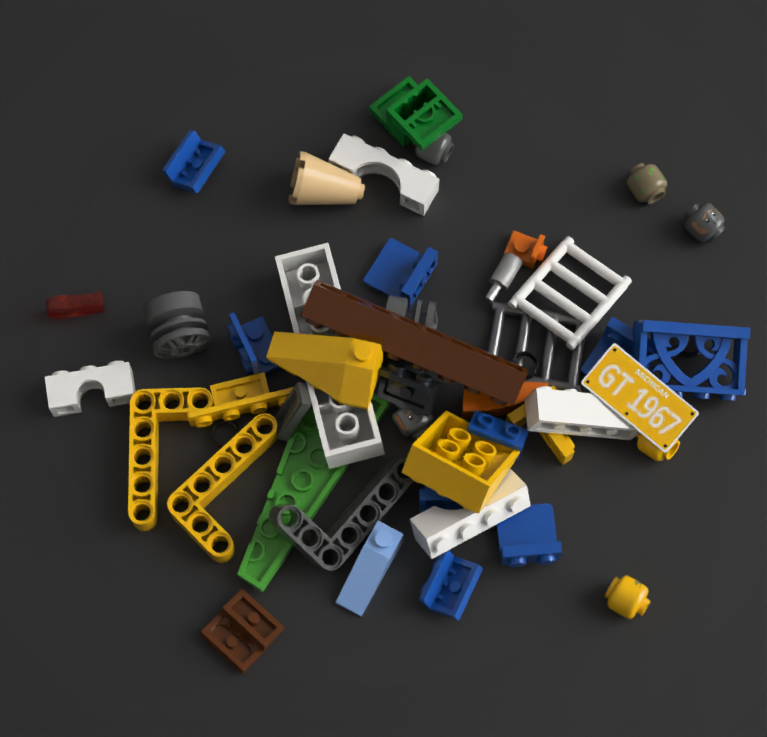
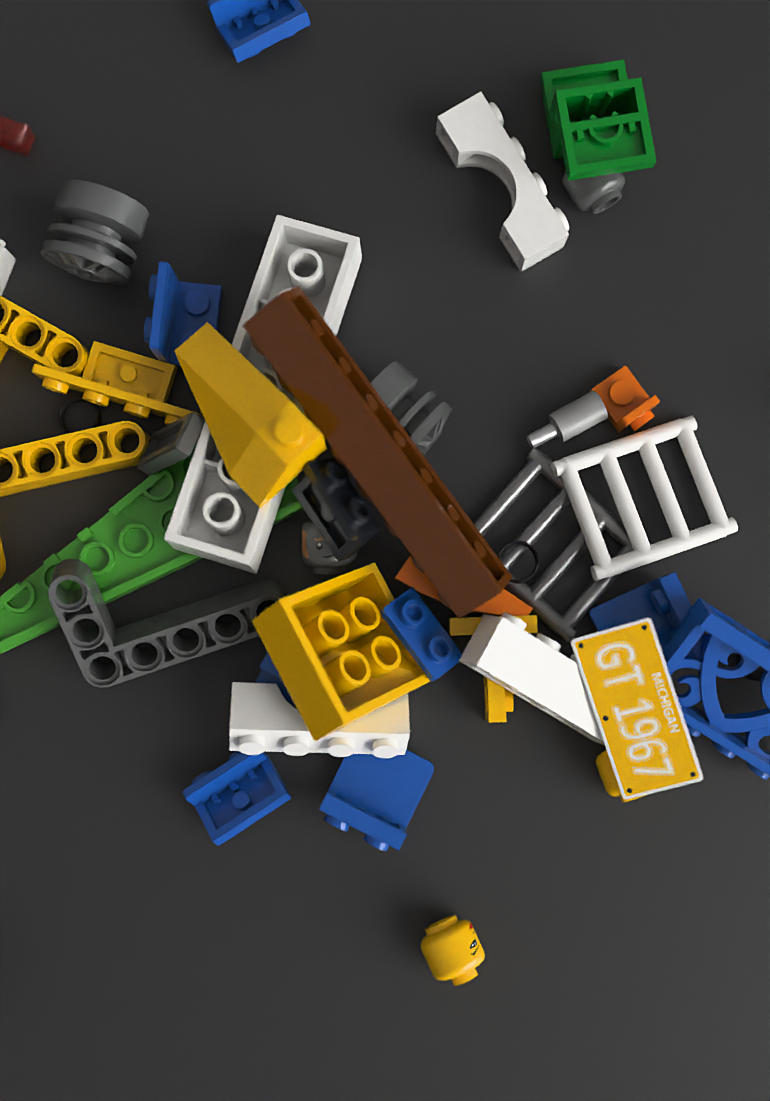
camera: 30 degrees right, 15 degrees up
(323, 183) = (410, 147): tan cone -> none
(370, 568) = (151, 707): light blue slope -> none
(401, 270) = (439, 333): blue bracket -> none

